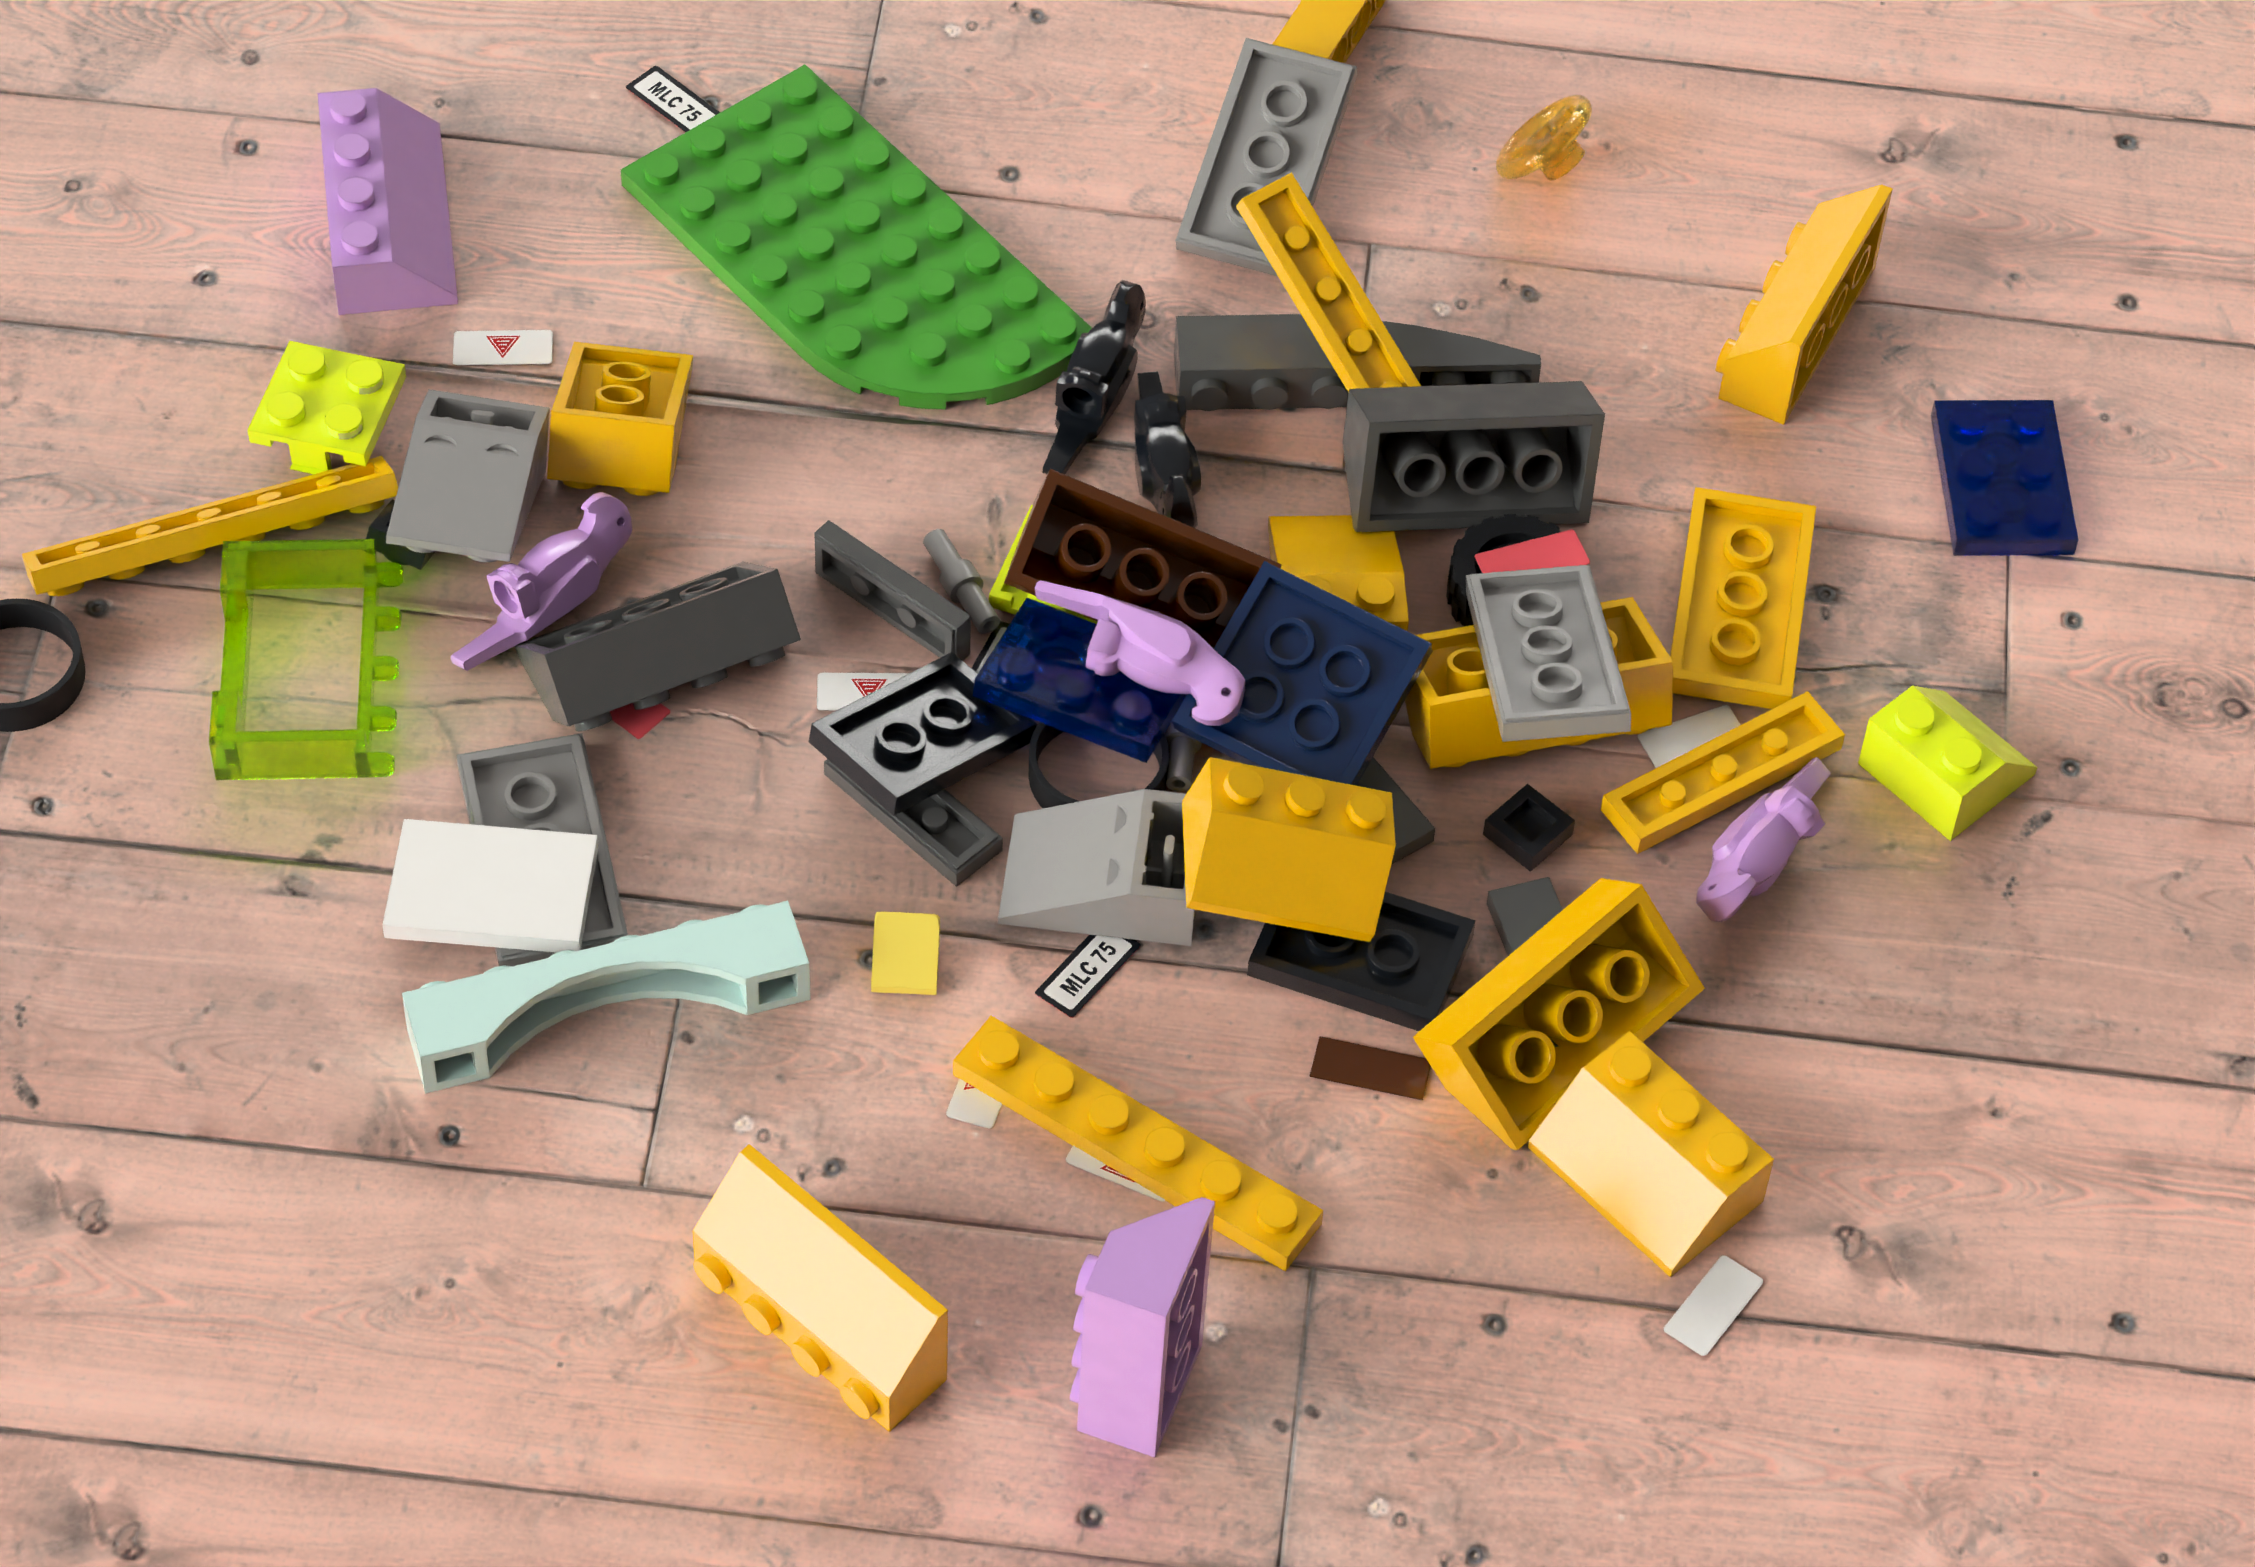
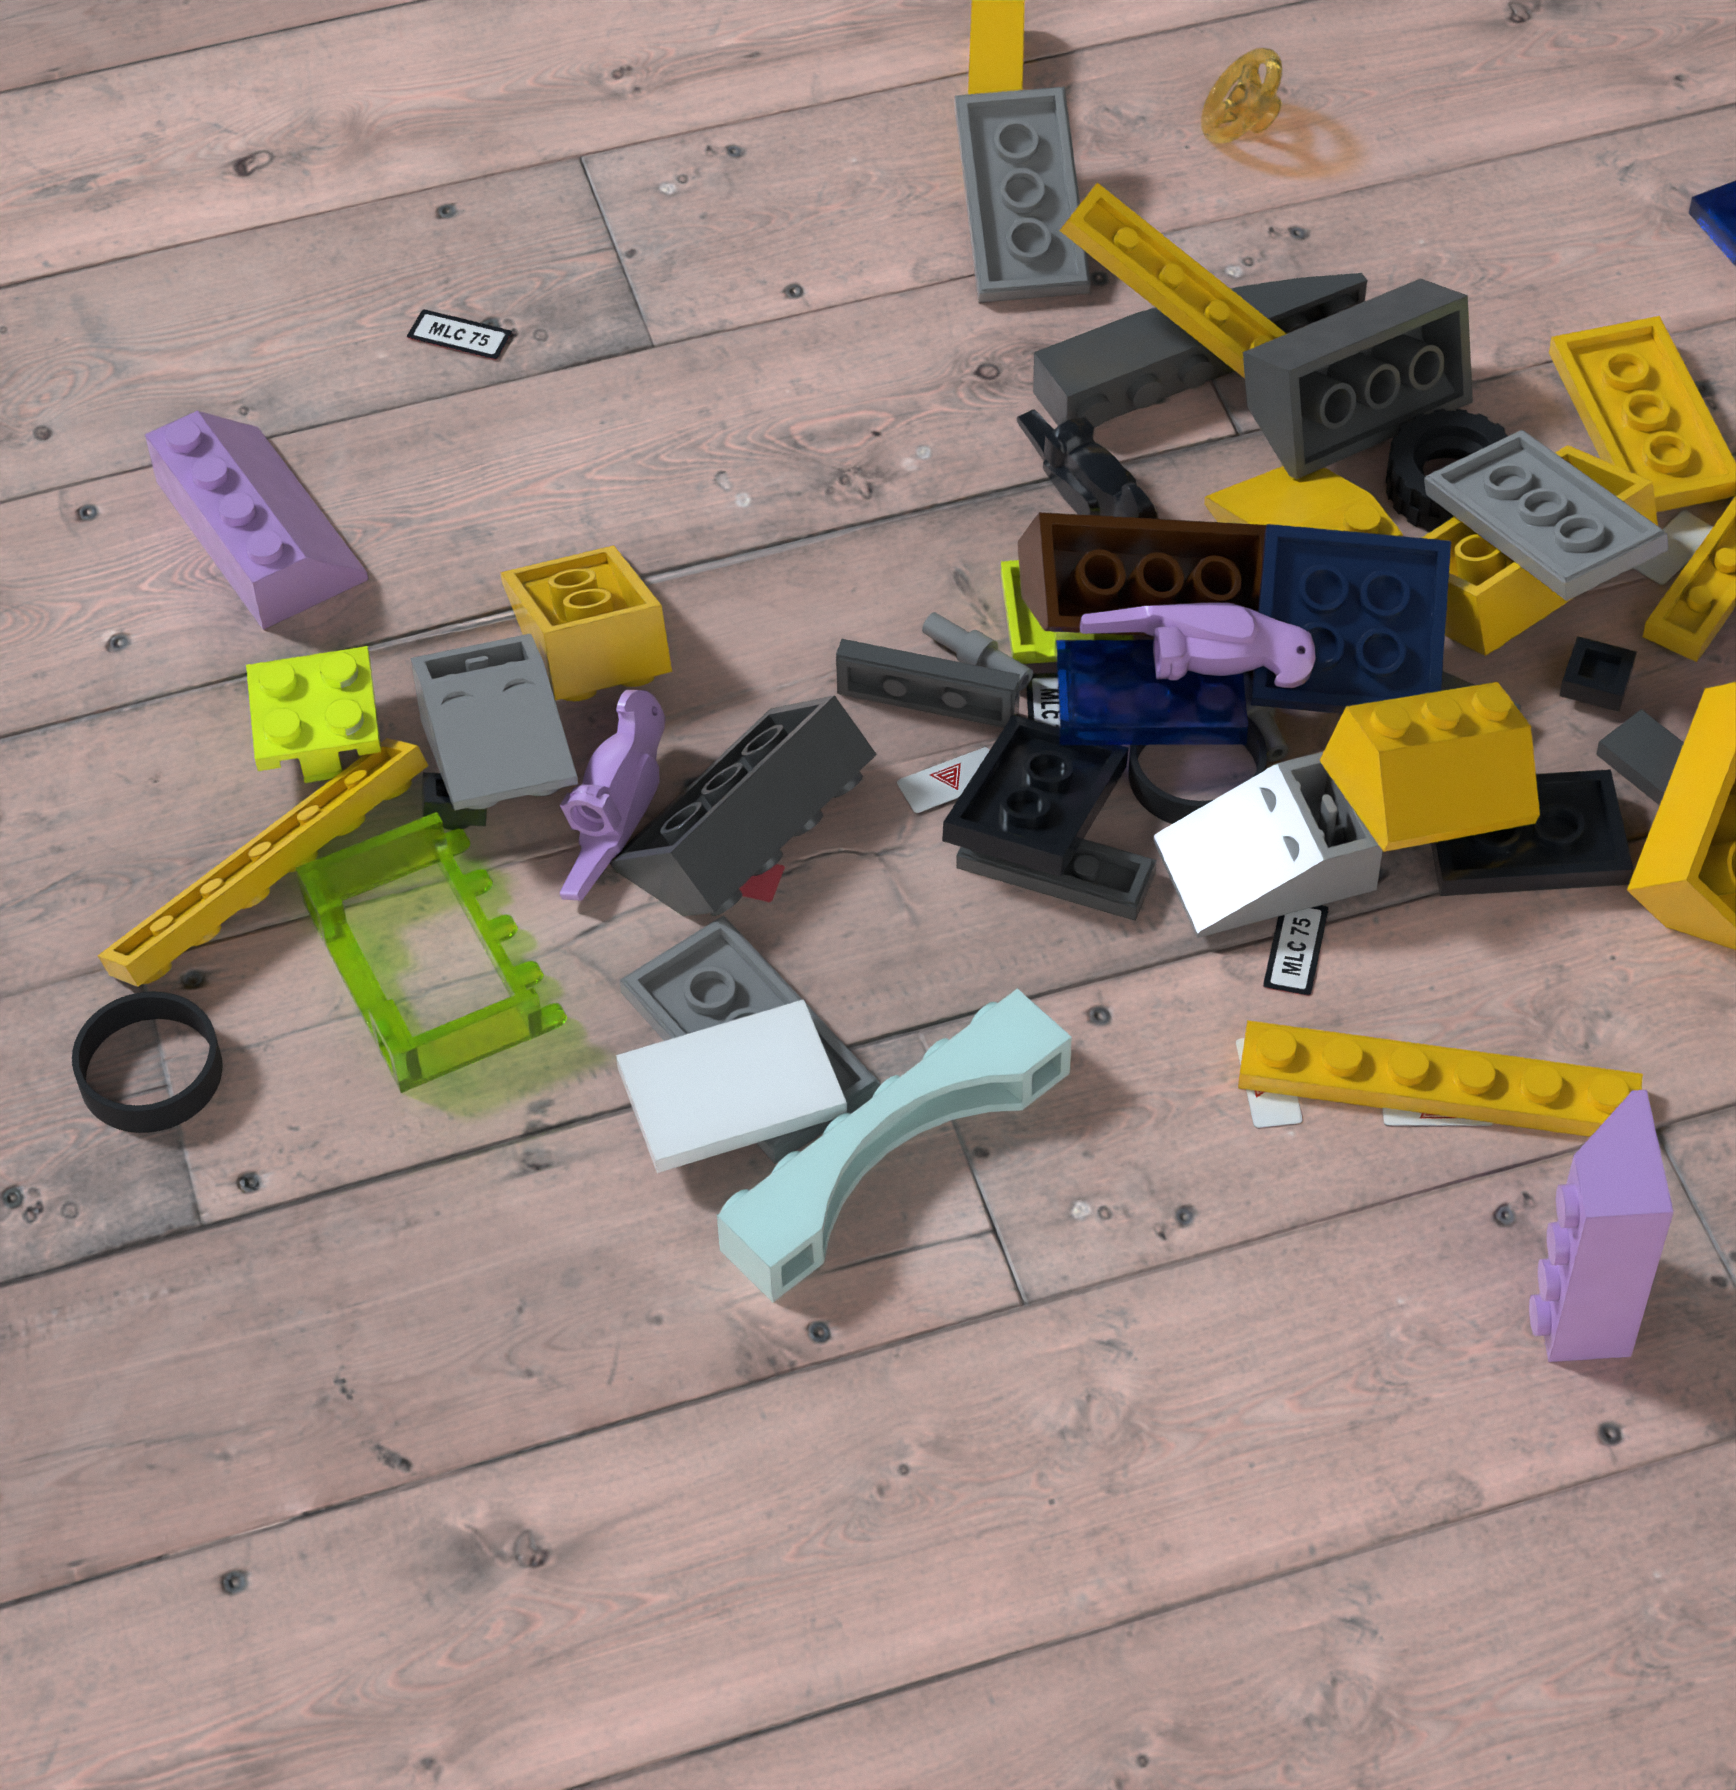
camera: 20 degrees left, 0 degrees up
(503, 347) = (433, 602): white sticker -> none
(821, 1291) = (1267, 1327): slope -> none
(854, 251) = (703, 404): bright green plate -> none
(905, 953) = (1135, 996): light yellow slope -> none
(1096, 376) = (986, 431): black animal -> none
(1370, 1068) = (1592, 934): reddish brown sticker -> none
(1544, 552) = (1466, 438): coral sticker -> none
(1803, 304) = (1543, 152): yellow slope -> none

